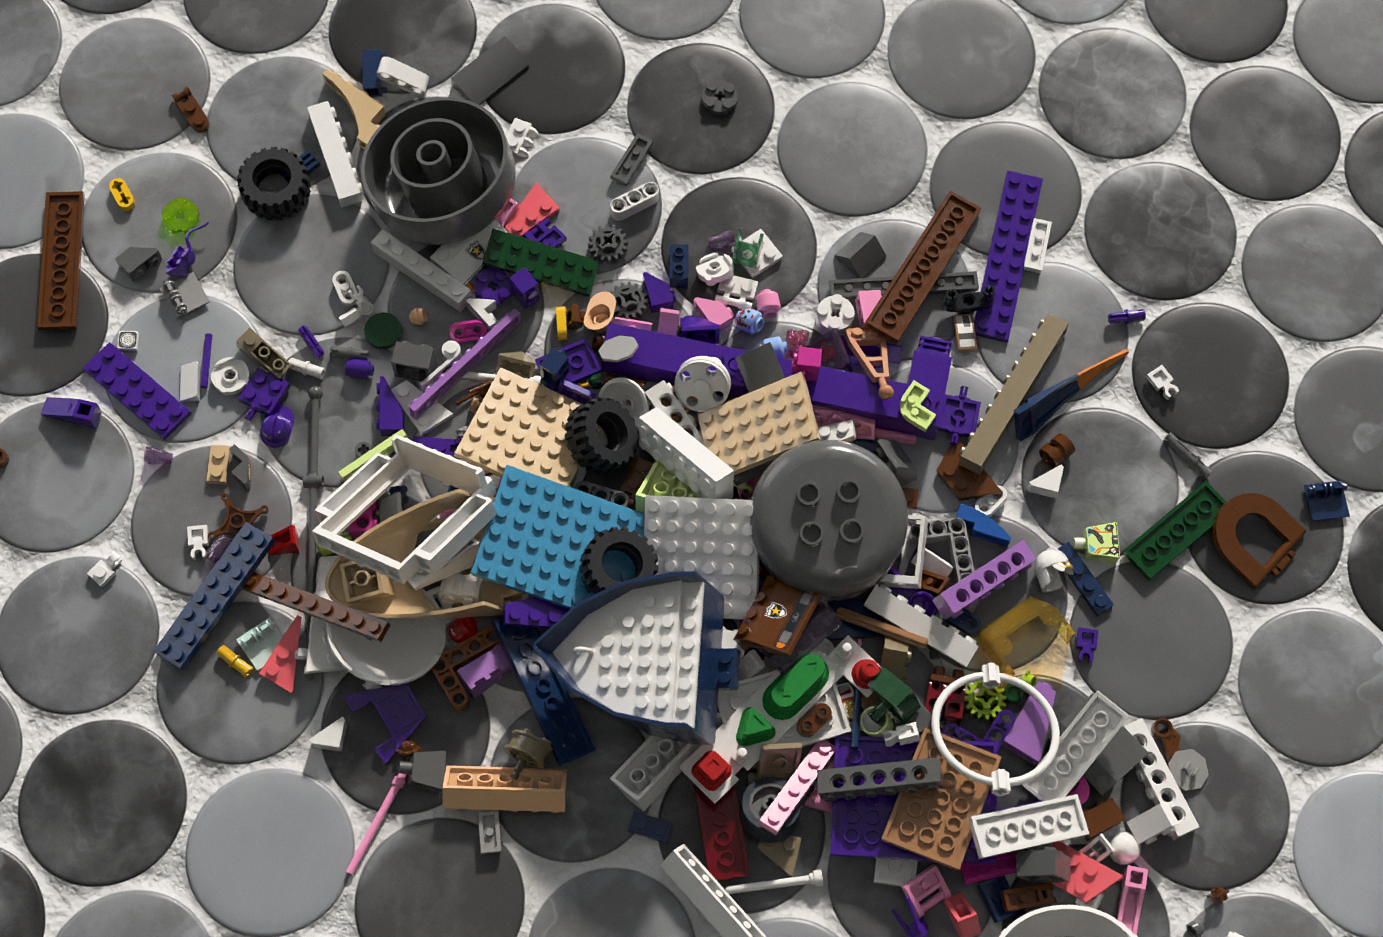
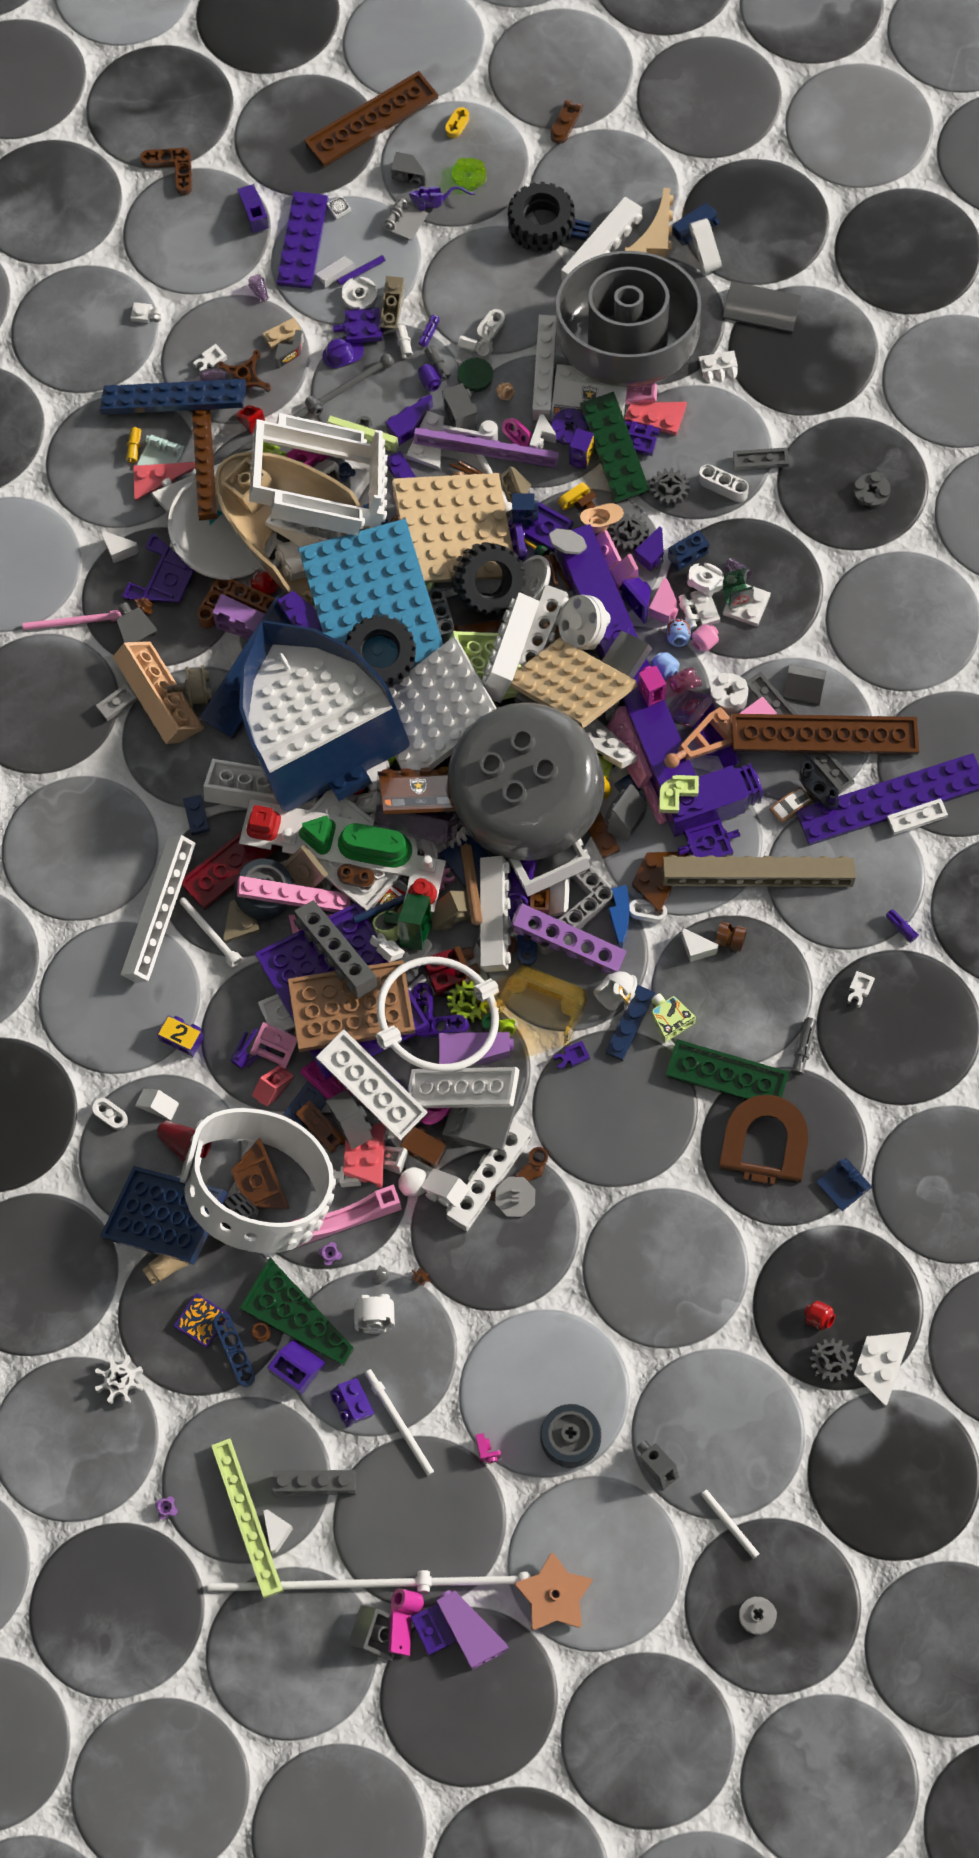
camera: 65 degrees right, 0 degrees up
(1042, 406) = (760, 901): dark blue plate -> none

